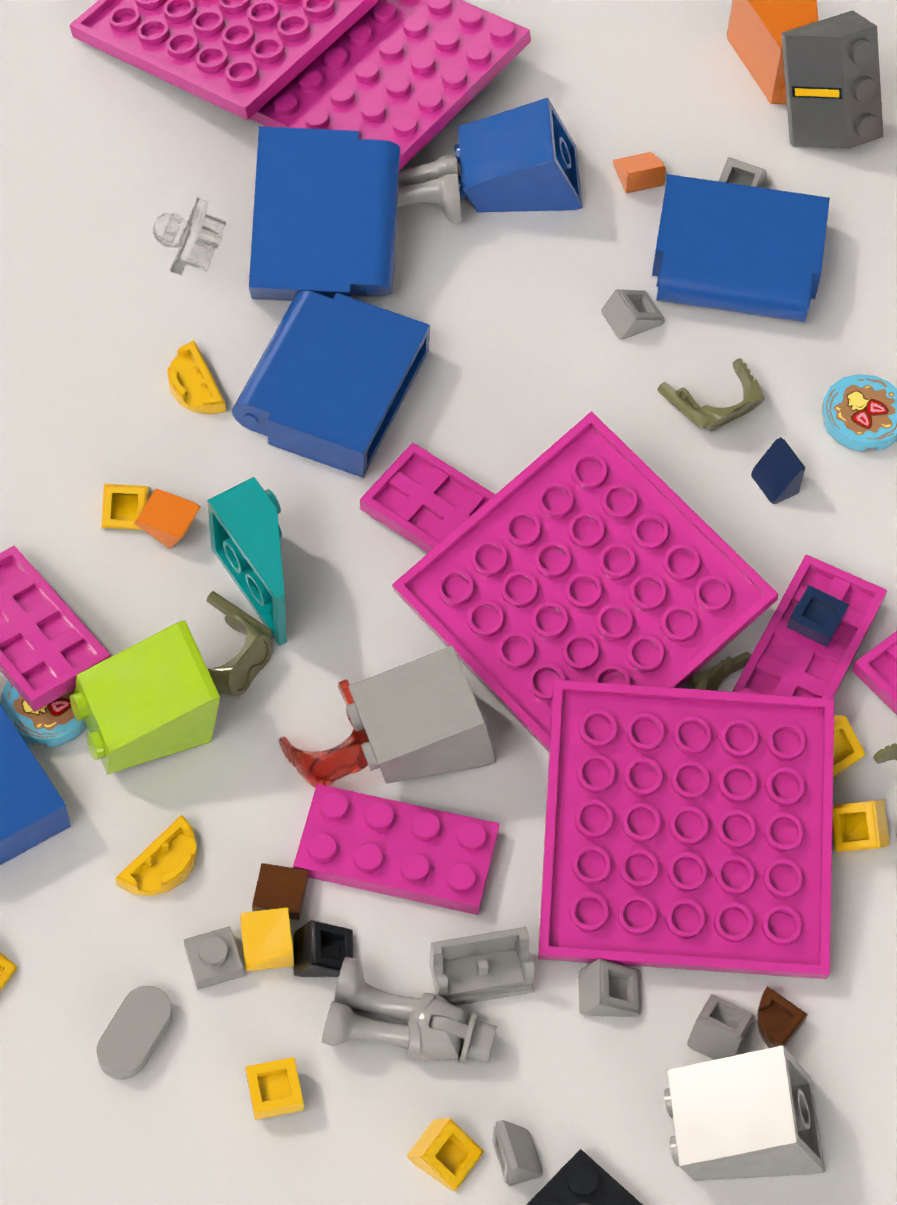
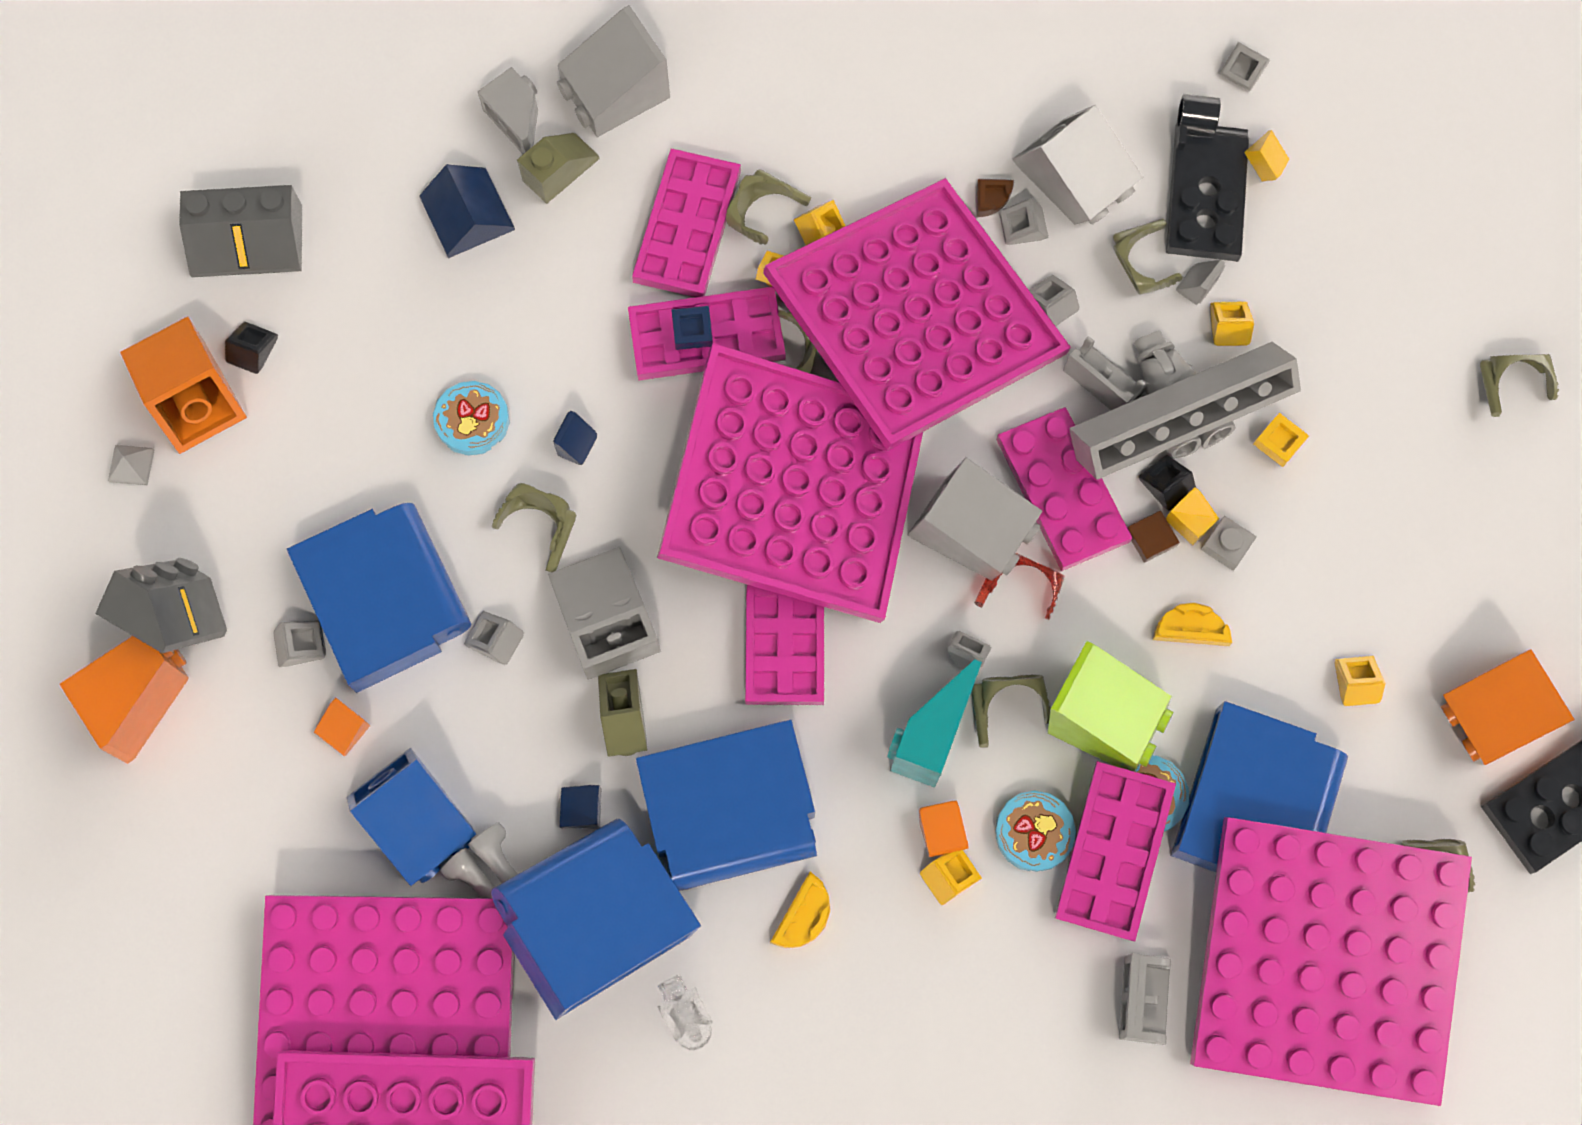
camera: 125 degrees left, 15 degrees up
(103, 590) = (1035, 831): none -> tile
(134, 1032) = (1315, 552): light grey tile -> none
(308, 648) = (965, 649): none -> light grey slope
(374, 985) = (1185, 410): none -> light grey brick
(424, 285) = (580, 807): none -> dark blue slope
(483, 351) = (622, 713): none -> olive slope
(576, 375) = (604, 613): none -> light grey slope
(600, 1089) = (1125, 241): none -> olive helmet

